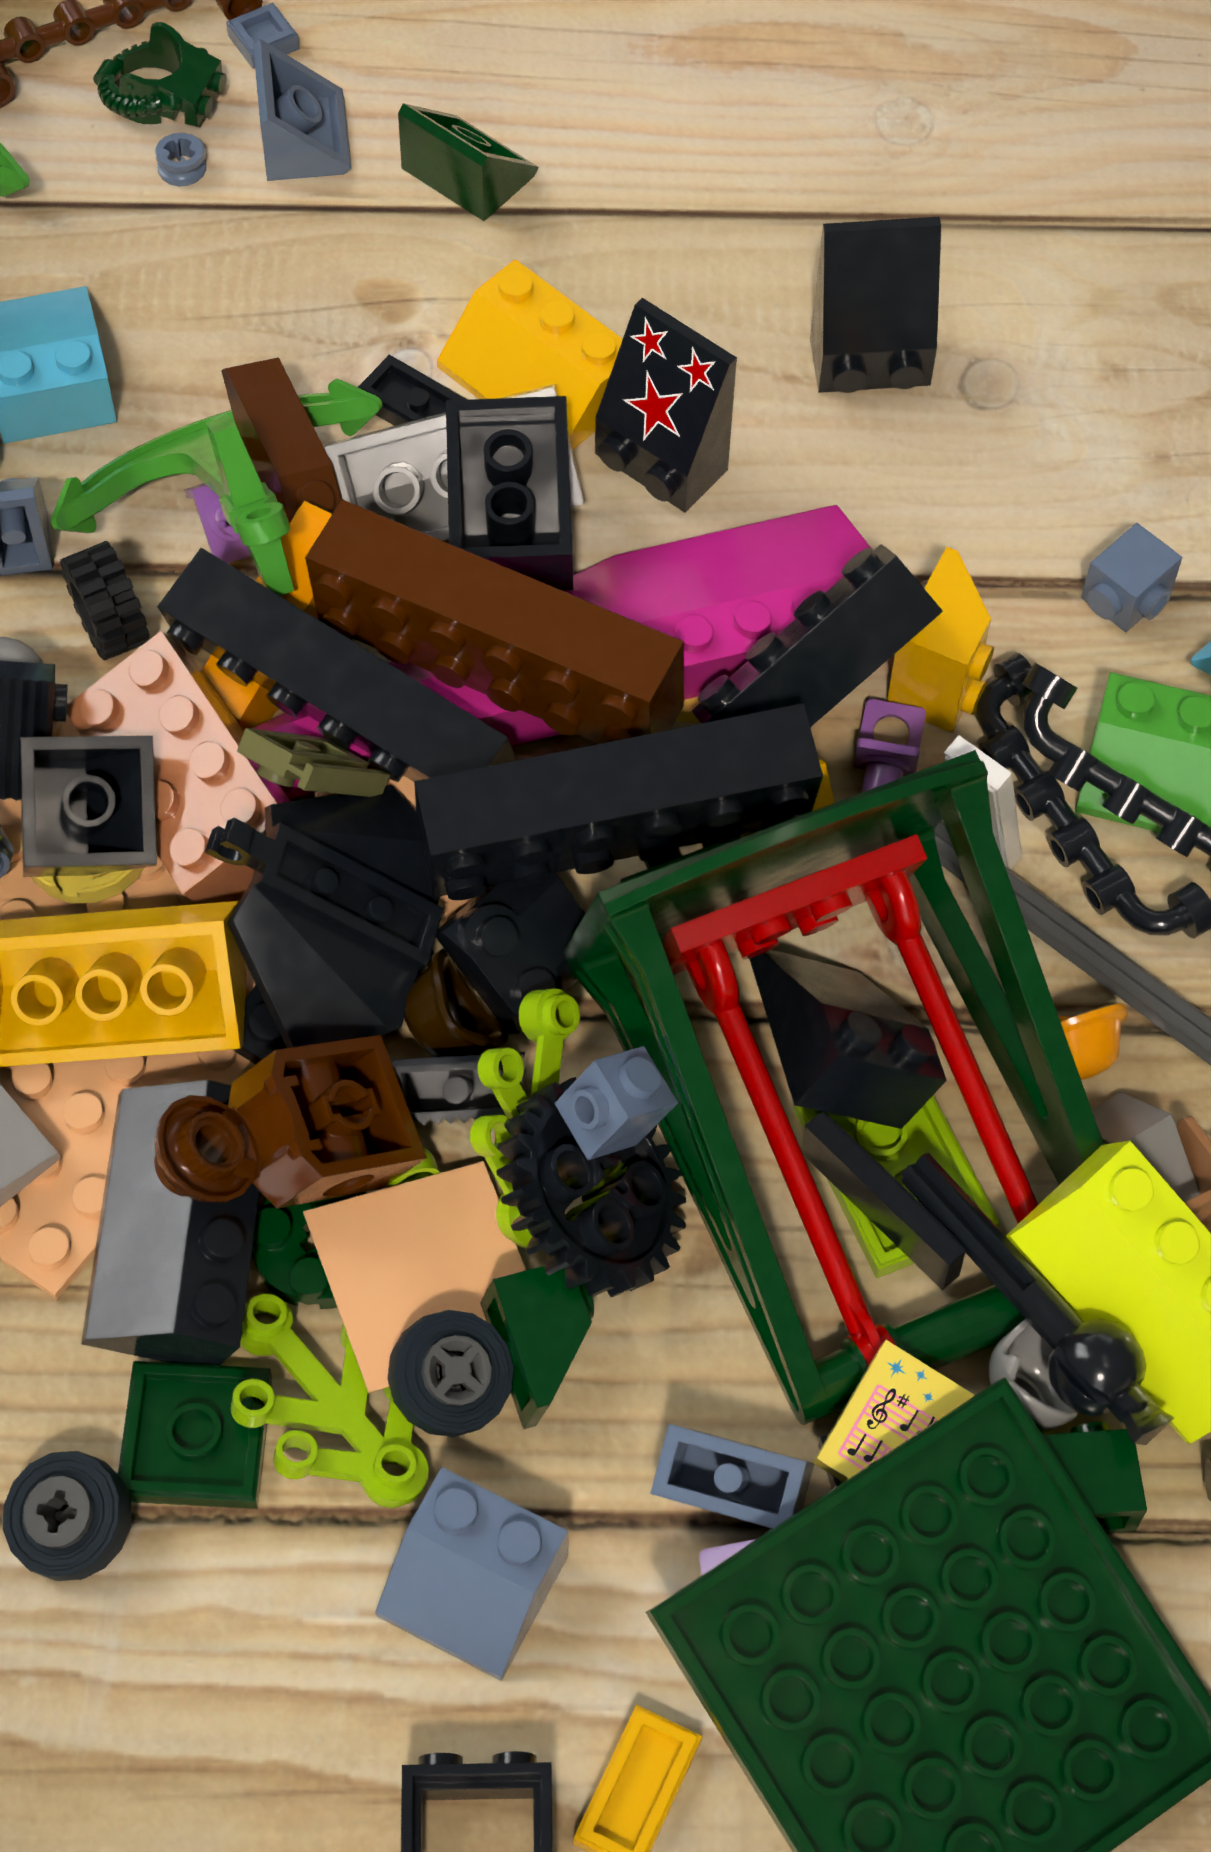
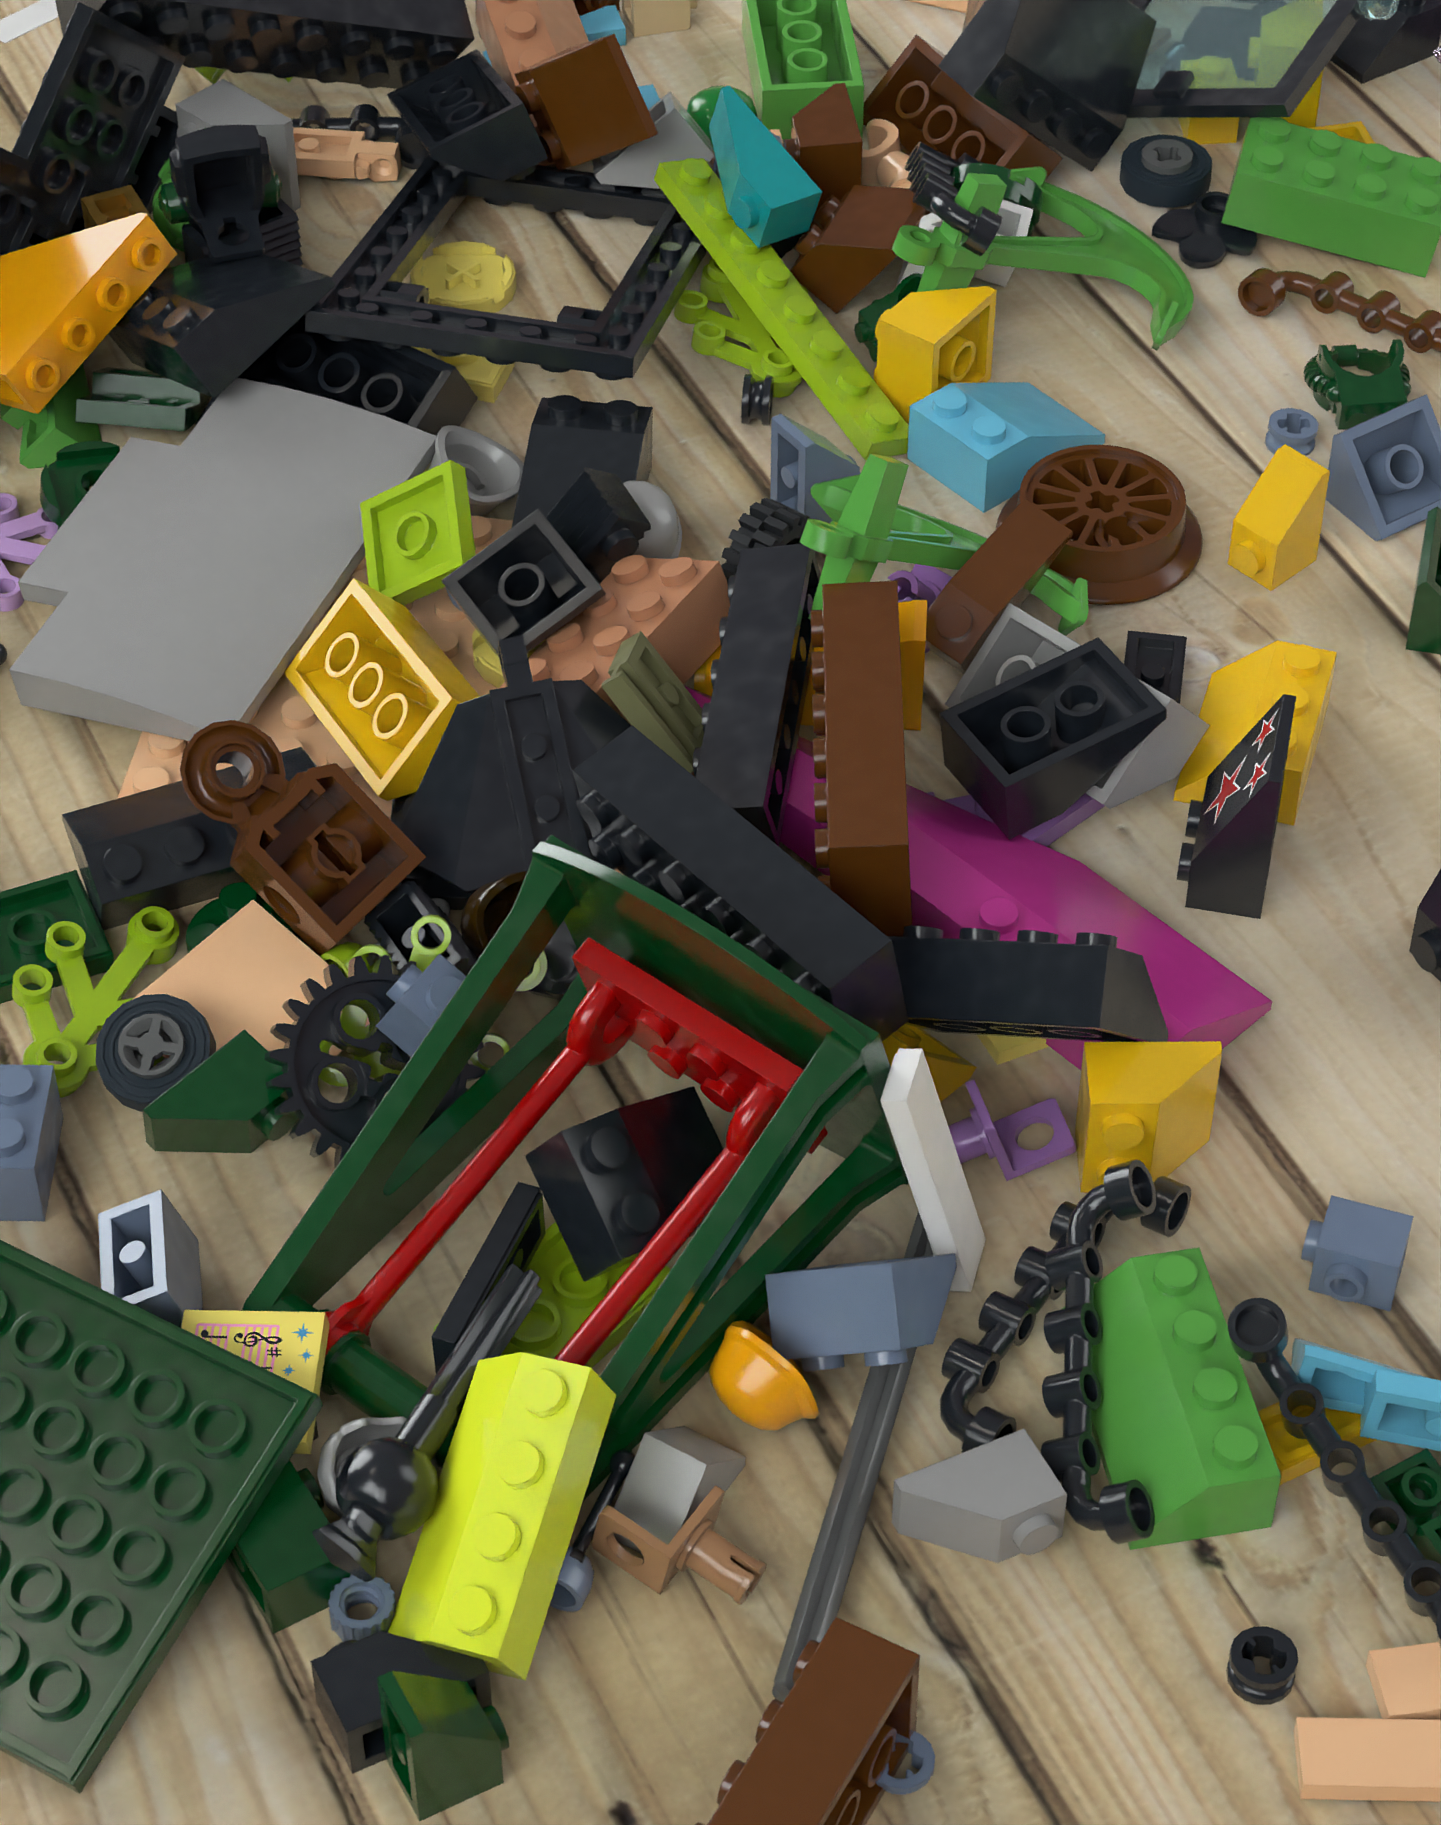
camera: 65 degrees right, 15 degrees down
(200, 318) = (1125, 518): none -> reddish brown piece
(316, 215) = (1280, 520): none -> yellow slope
(1066, 920) = (858, 1309): none -> sand blue slope
(1160, 1469) = (353, 1592): none -> sand blue axle

